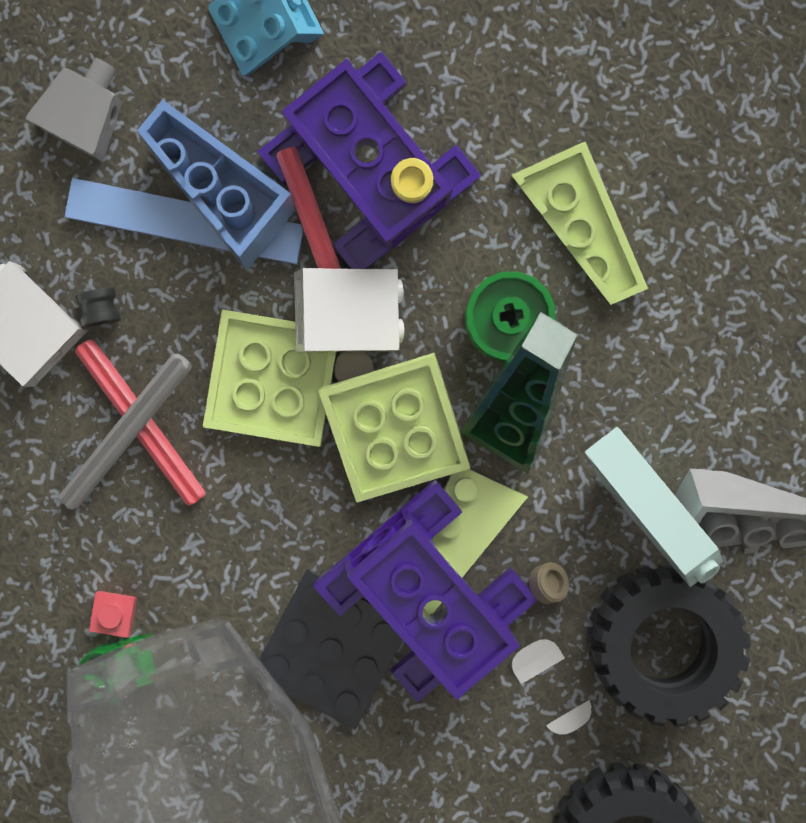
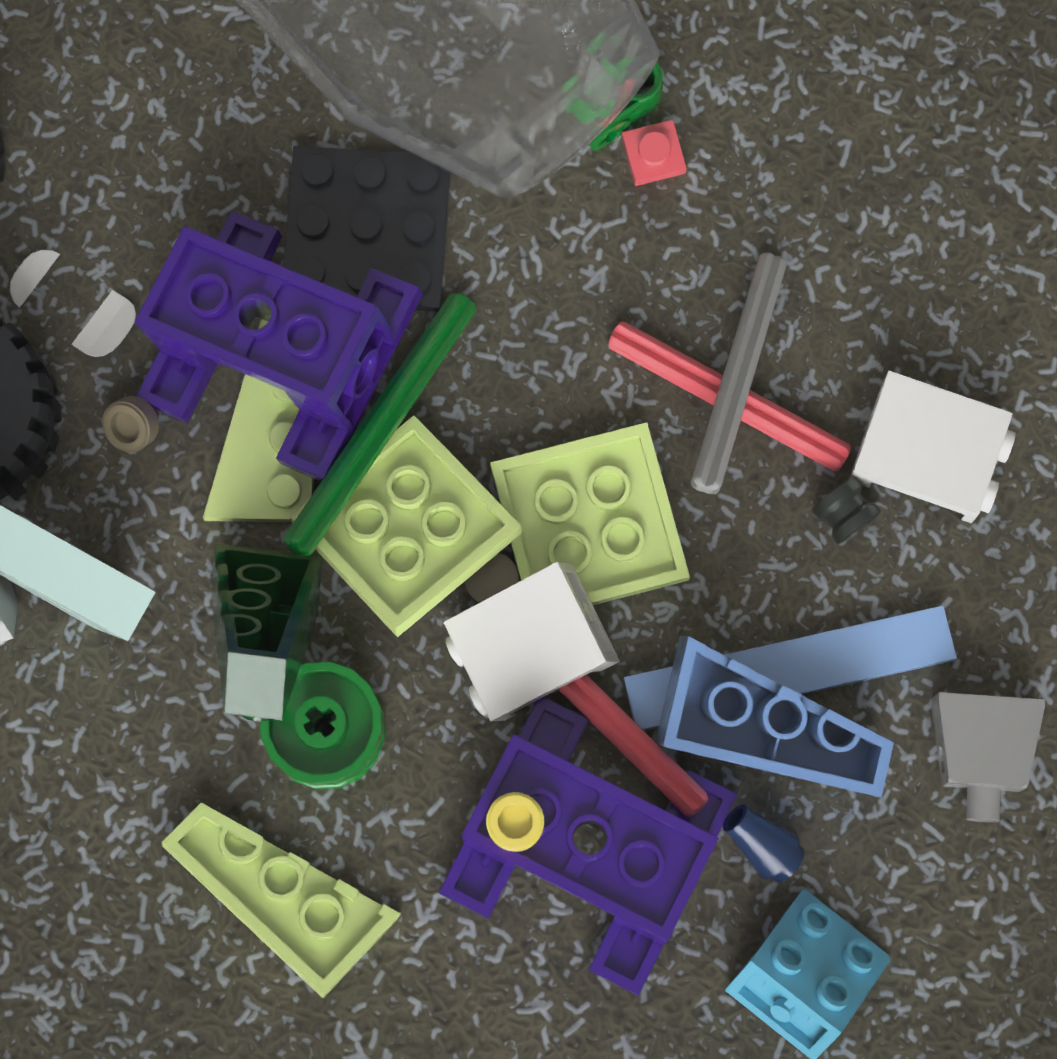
camera: 155 degrees right, 10 degrees down
(253, 109) = (767, 846): none -> dark blue cone
(382, 504) = (379, 425): none -> green axle

